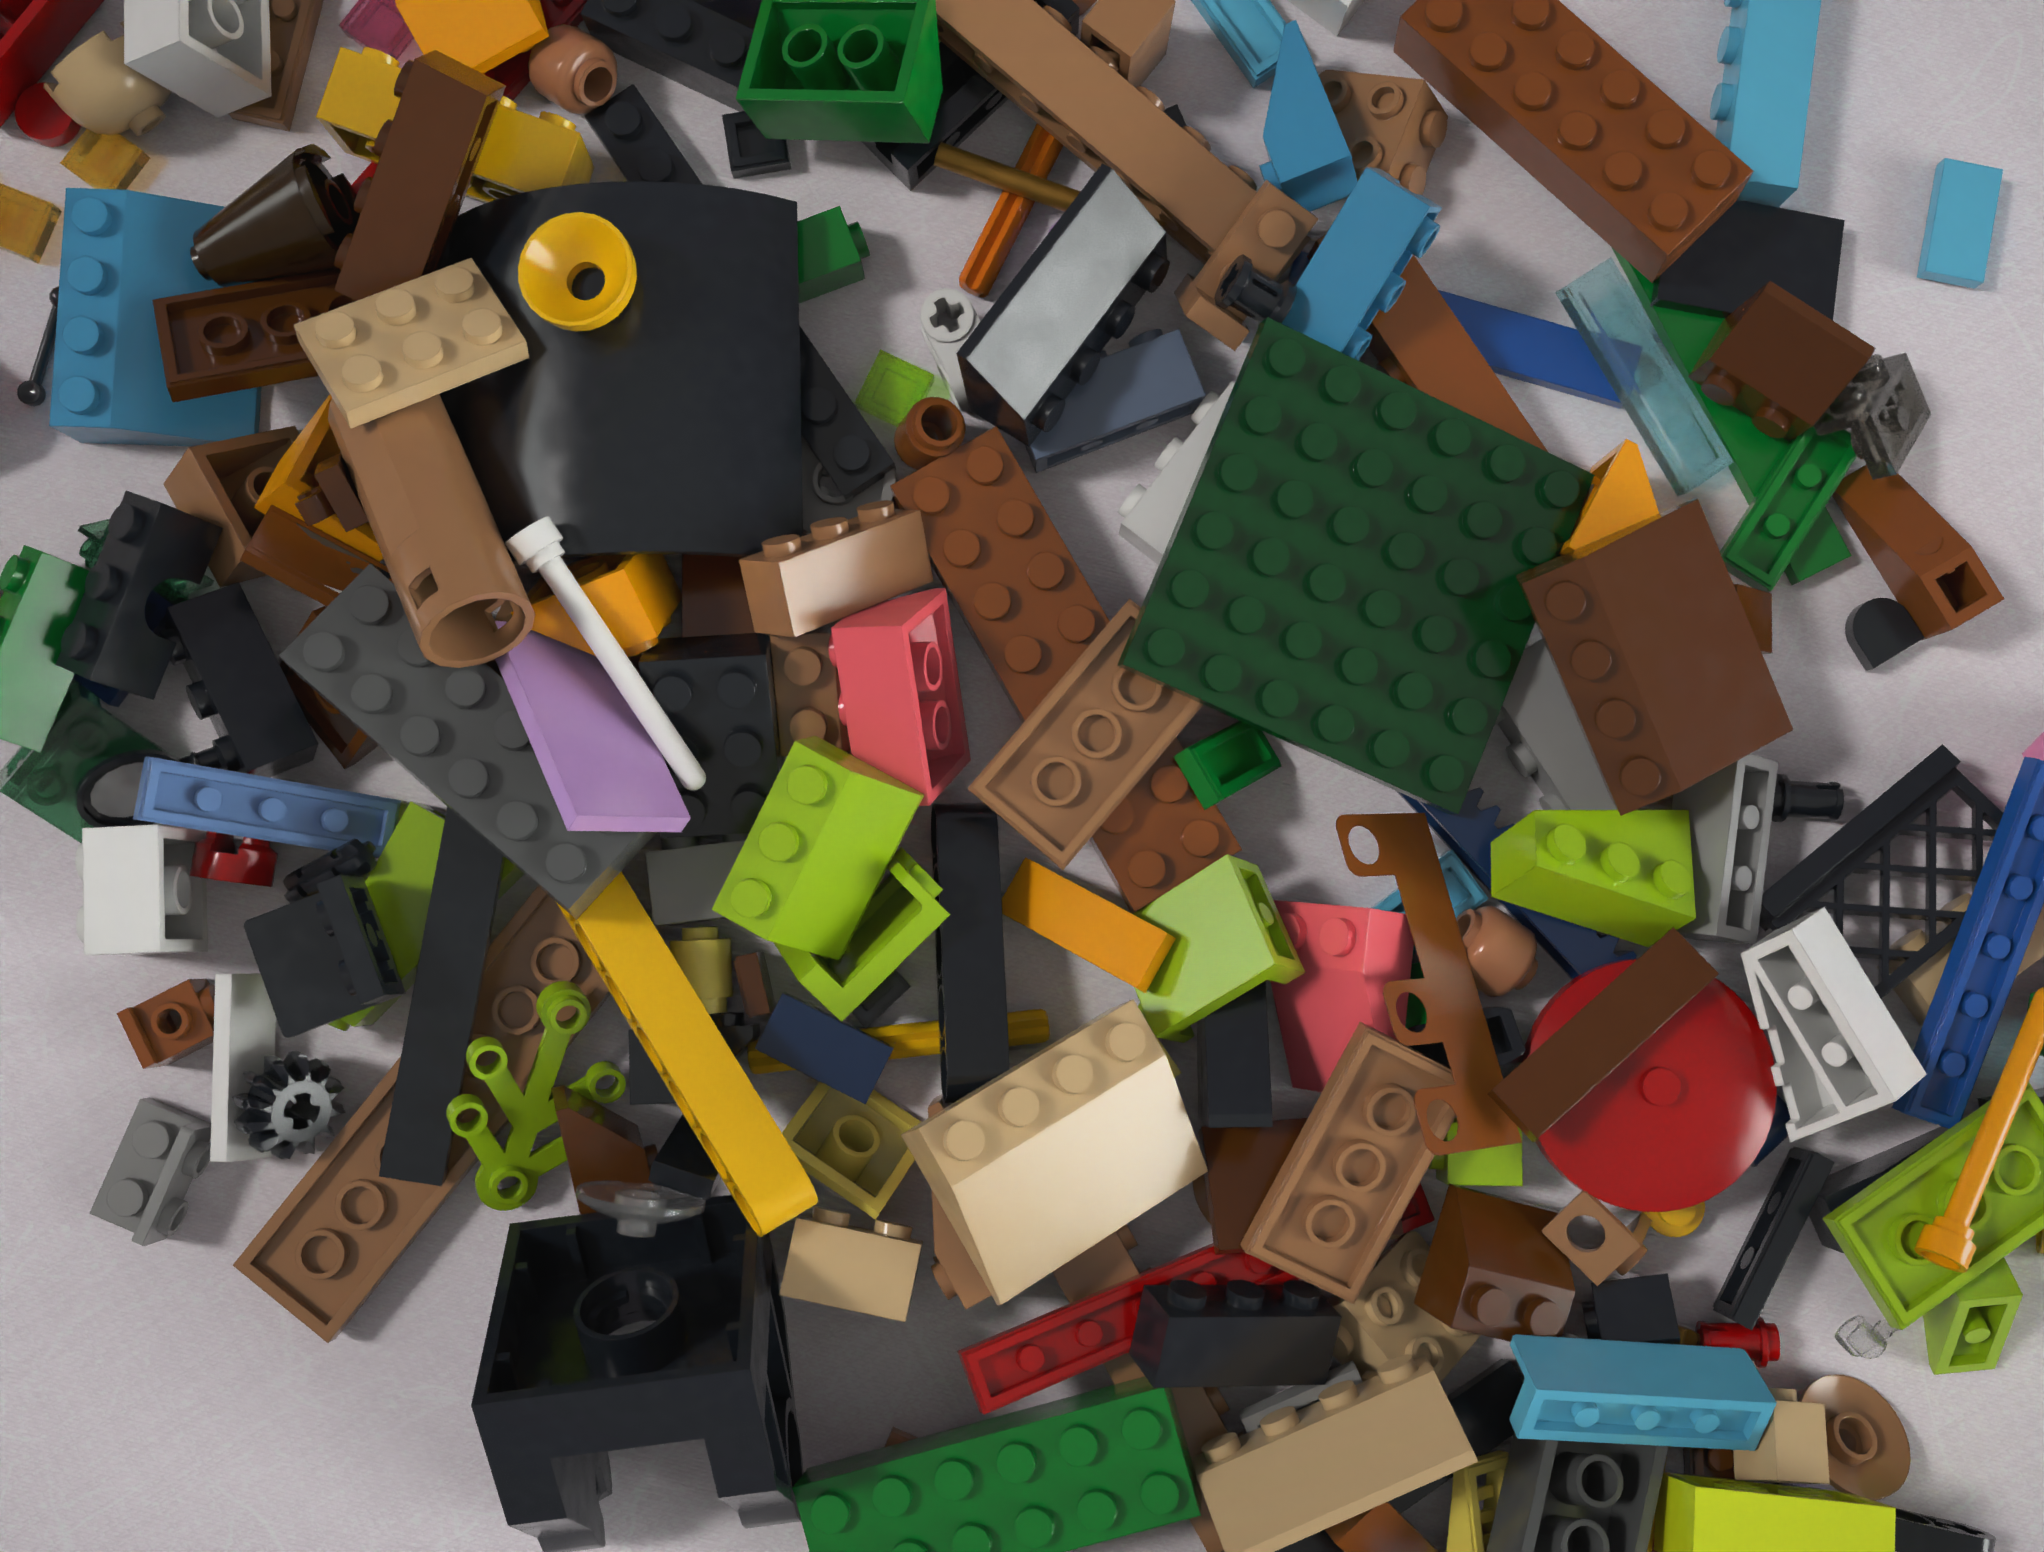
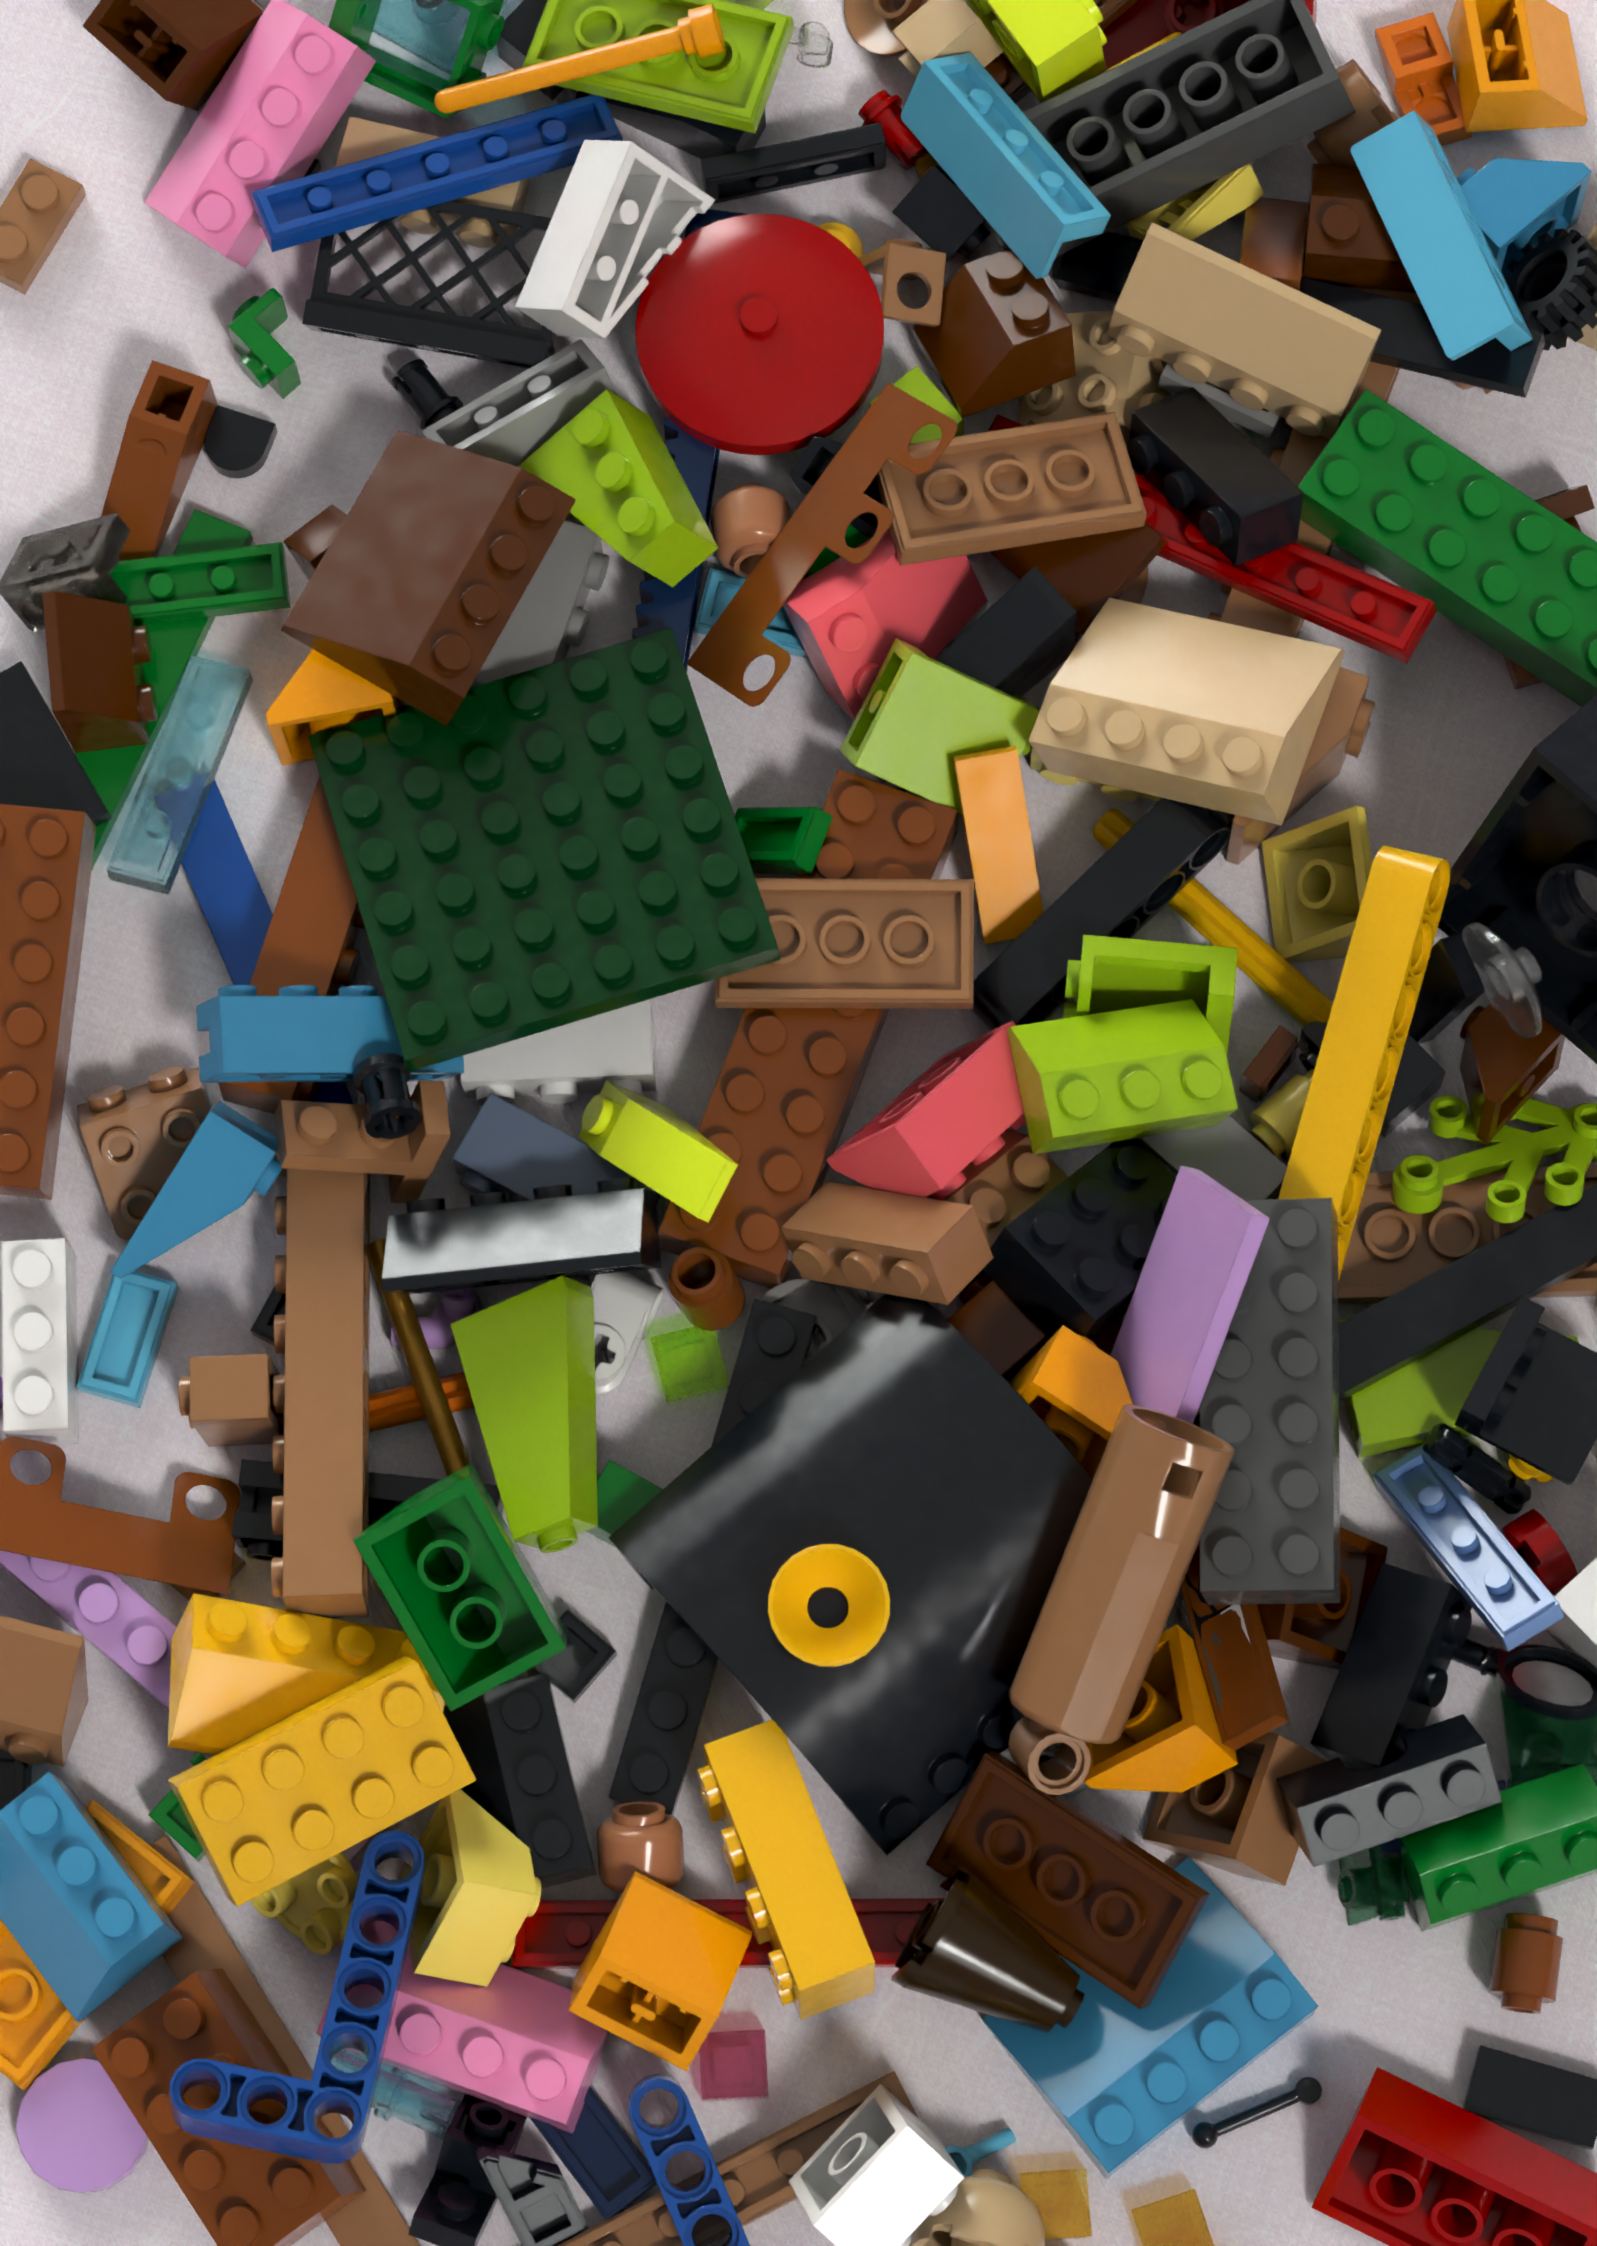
camera: 125 degrees left, 10 degrees down
(184, 115) = (972, 2154): none -> medium azure hand
(332, 495) = (1172, 1673): reddish brown tile -> none
(411, 342) = (994, 1710): tan plate -> none
(420, 175) = (862, 1824): reddish brown brick -> none
(541, 551) = (1073, 1456): white piece -> none
(824, 1047) = (1270, 964): dark blue tile -> none
(852, 1264) = (1413, 792): tan slope -> none
(928, 225) = (537, 1407): none -> lime slope
(1054, 469) = (657, 1149): none -> neon yellow slope
(1603, 1034) = (754, 386): reddish brown tile -> none
(1970, 711) = (261, 354): none -> green bracket

